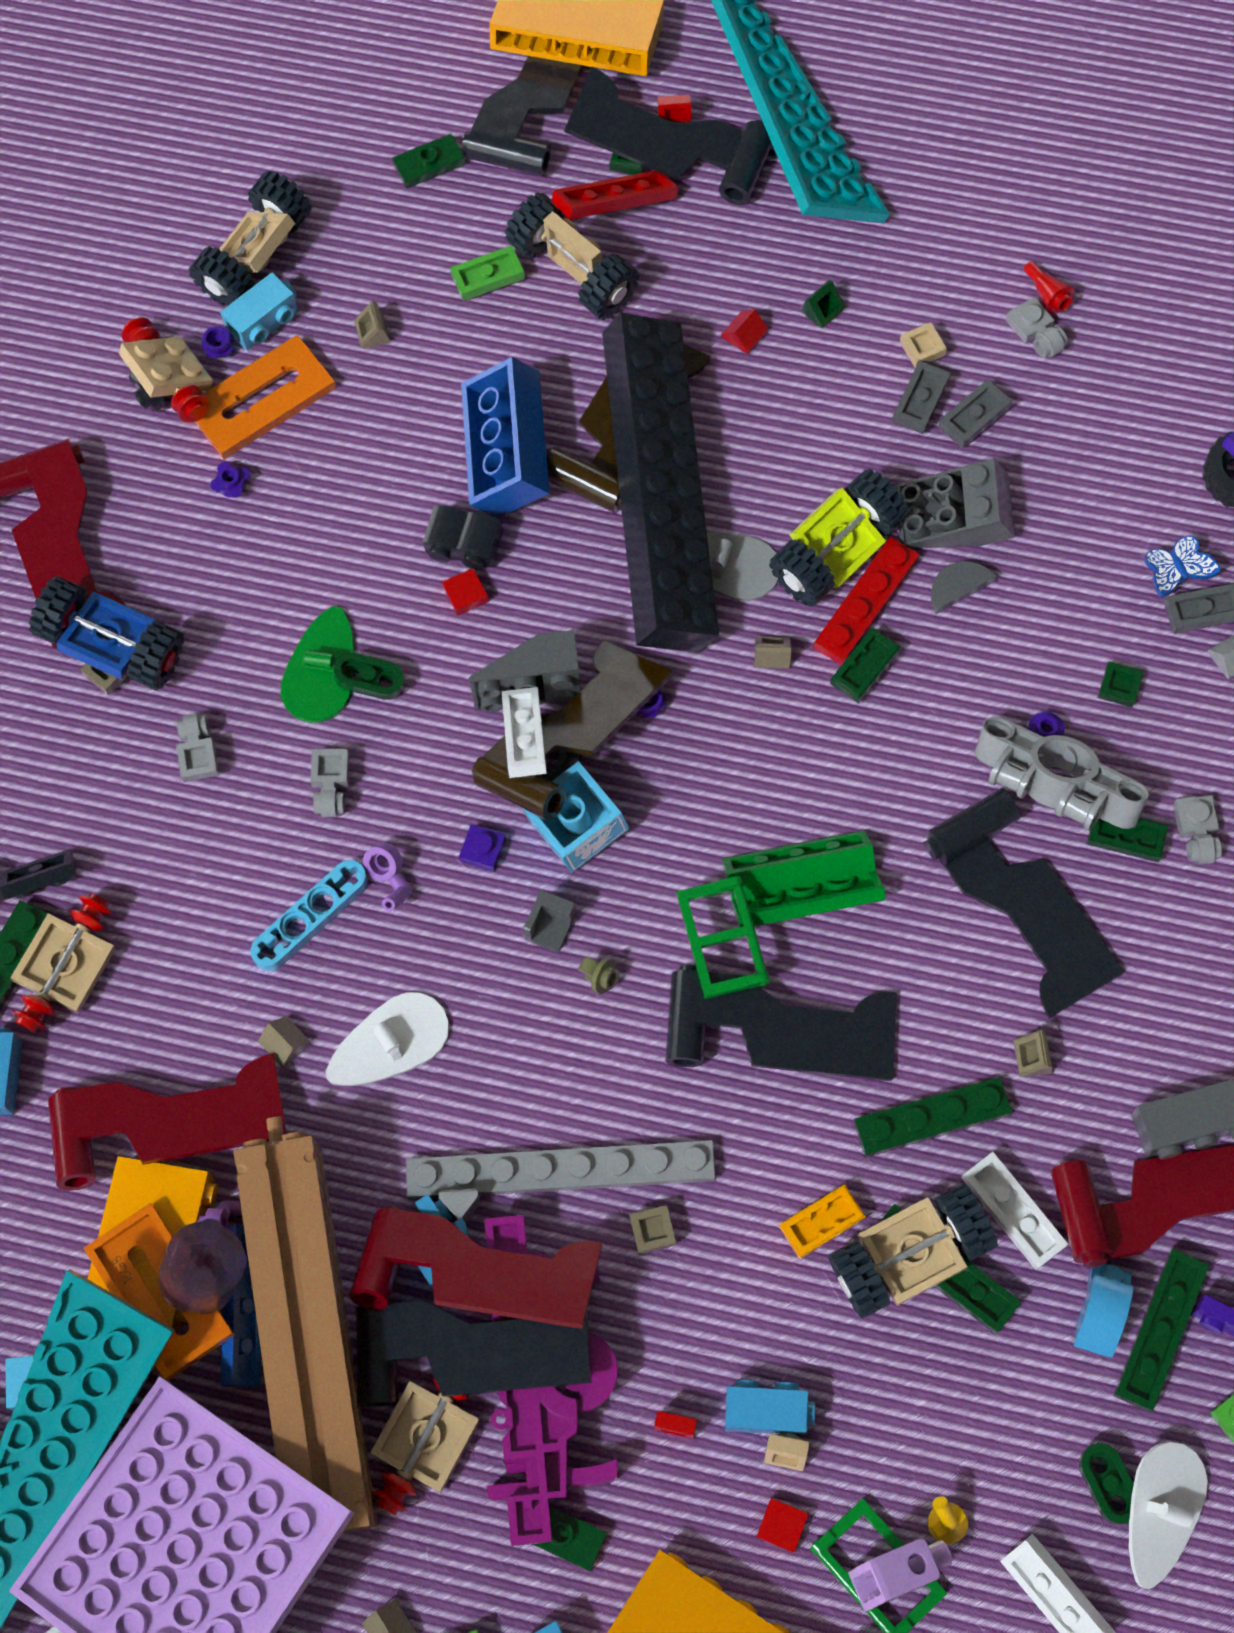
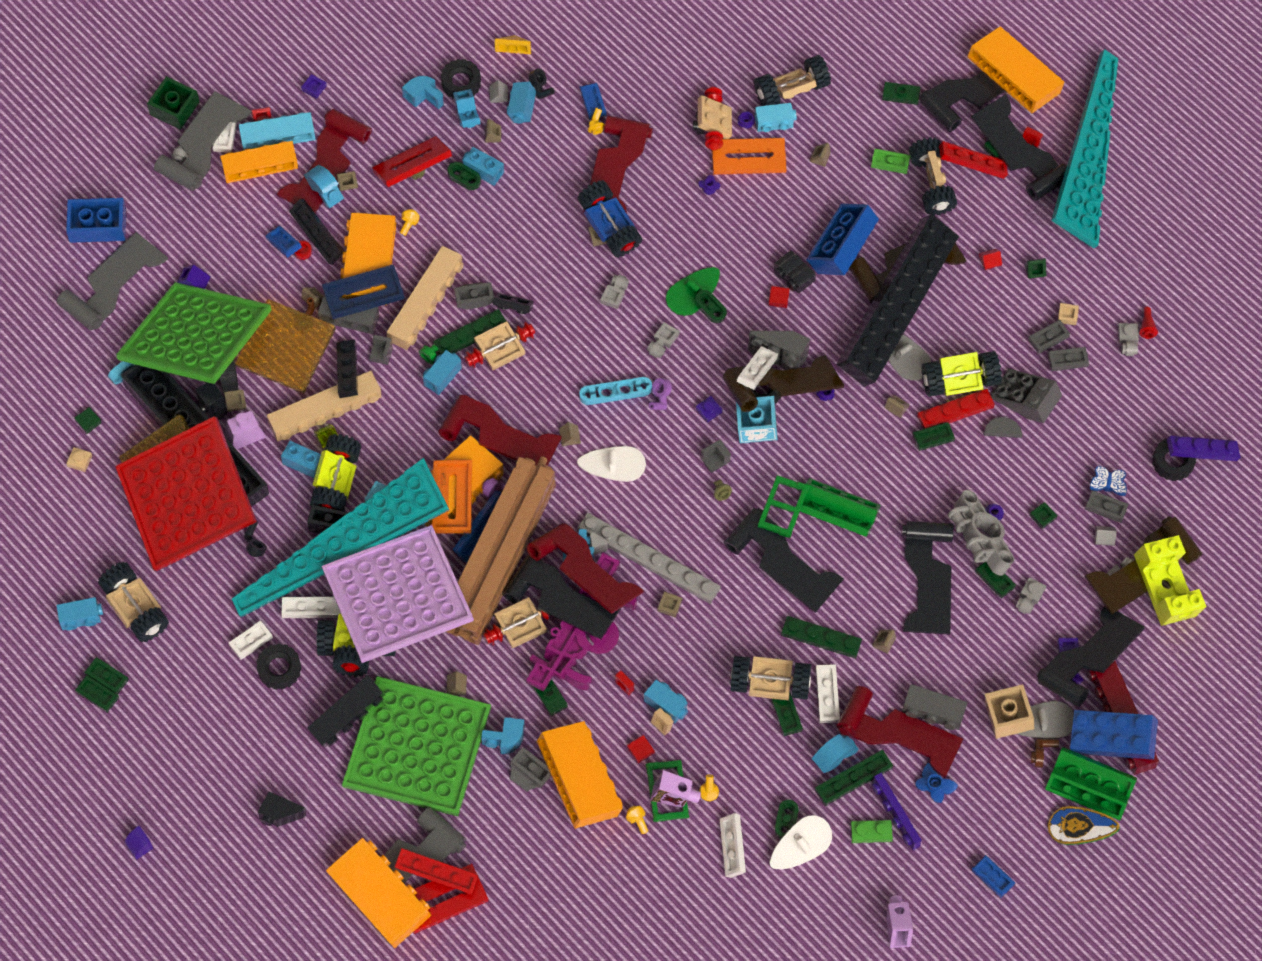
camera: 30 degrees right, 5 degrees down
(201, 1267) = (476, 495): clear purple brick -> none
(822, 1222) = (743, 646): light orange plate -> none

